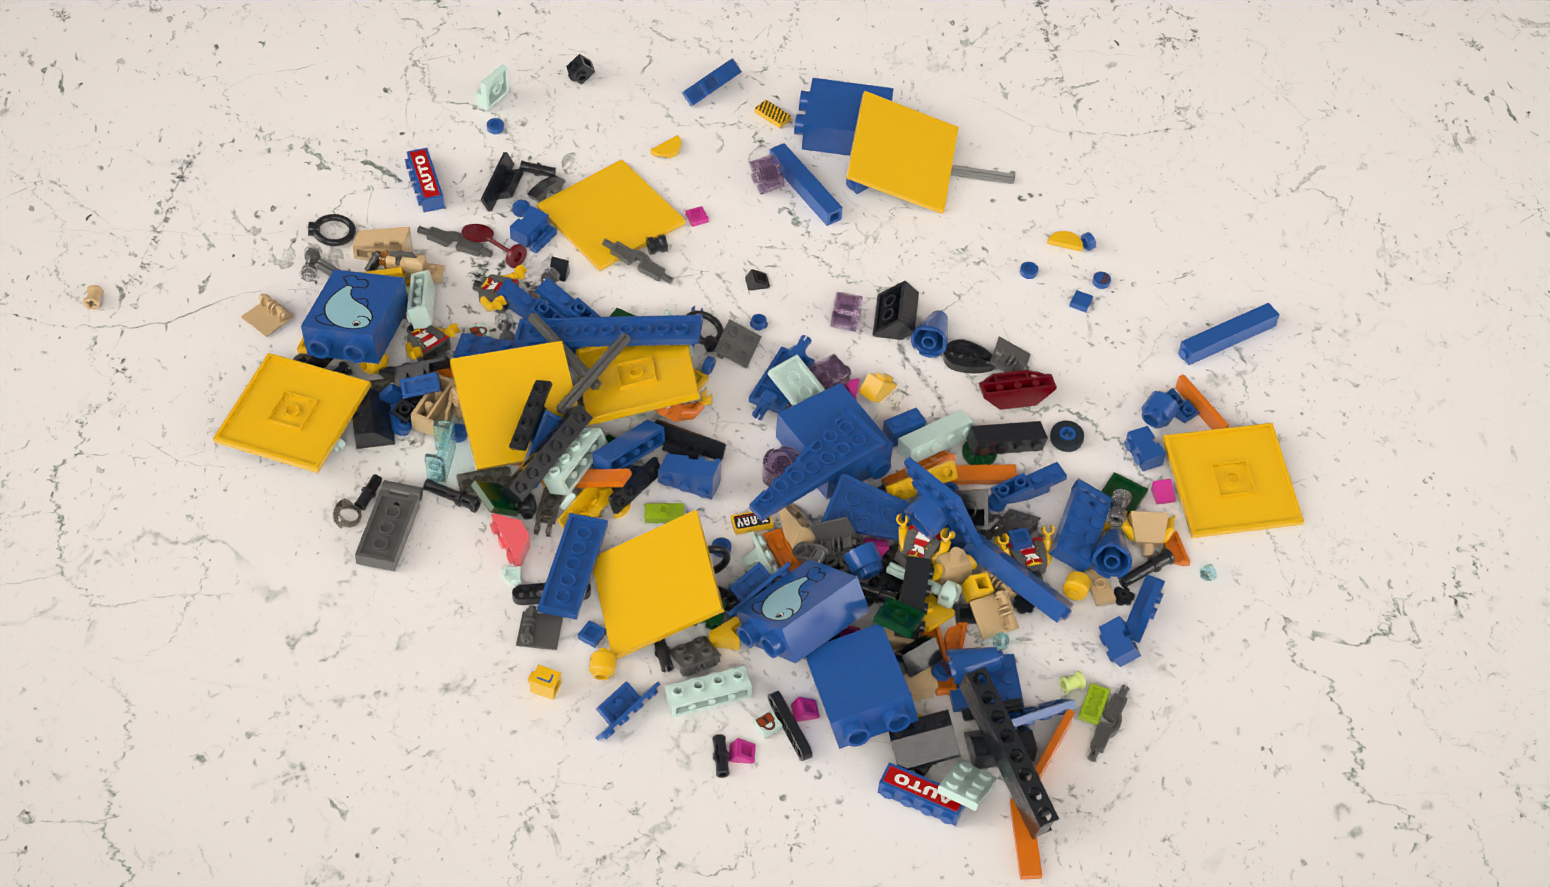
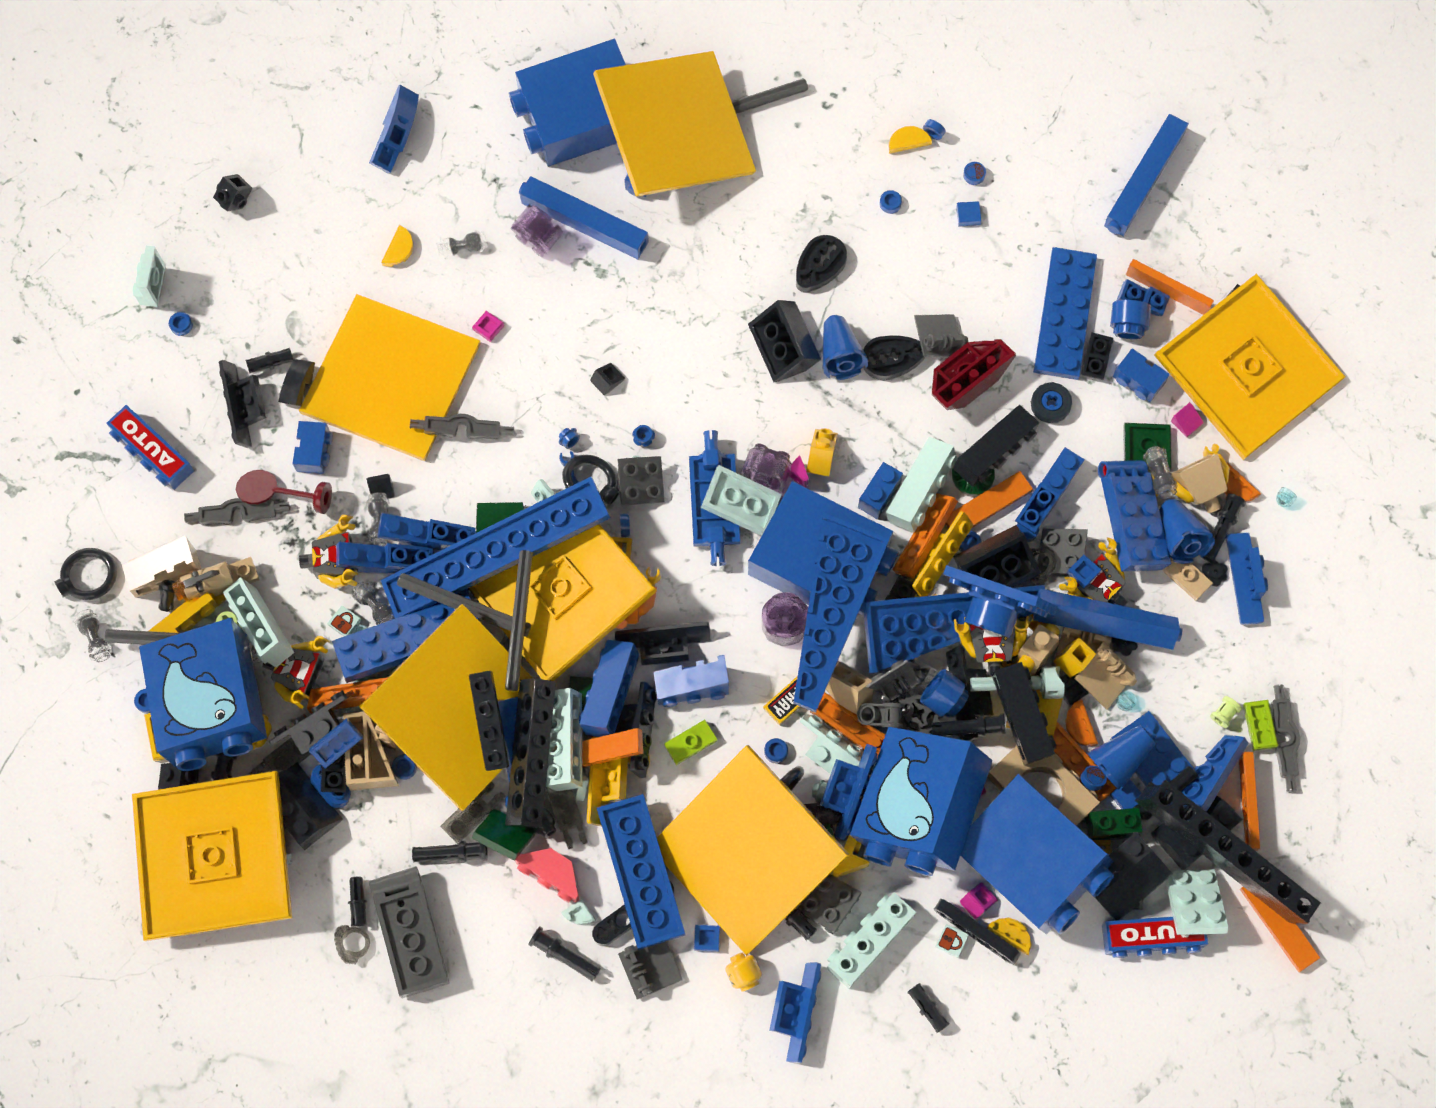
camera: 25 degrees left, 20 degrees up
(267, 315) = (89, 734): tan hinge -> none
(391, 394) = (302, 764): blue tile -> none
(439, 465) = (402, 787): clear light blue panel -> none
(481, 585) = (554, 948): none -> black pin
(520, 207) = (285, 426): blue tile -> none
(543, 239) = (336, 454): blue axle -> none
(545, 682) = (696, 1028): yellow brick -> none
(657, 244) = (469, 392): black wheel -> none
(706, 300) = (568, 437): none -> blue plate
(719, 164) = (472, 242): none -> clear piece
(742, 751) = (945, 989): dark pink slope -> none
(772, 113) = (487, 135): yellow tile -> none
(817, 742) = (1012, 932): none -> yellow tile
(846, 311) = (733, 372): clear purple brick -> none
(882, 545) = (939, 660): dark pink slope -> none
(899, 617) = (1031, 755): dark green tile -> none
(919, 655) = (1063, 777): black panel -> none
(933, 702) = (1113, 824): none -> dark green brick
(945, 278) = (831, 268): none -> black piece
(1076, 585) = (1166, 590): yellow head -> none
(1113, 389) = (1065, 313): none -> blue plate
(1116, 636) = (1246, 638): blue brick -> none
(1121, 424) = (1097, 356): none -> black slope

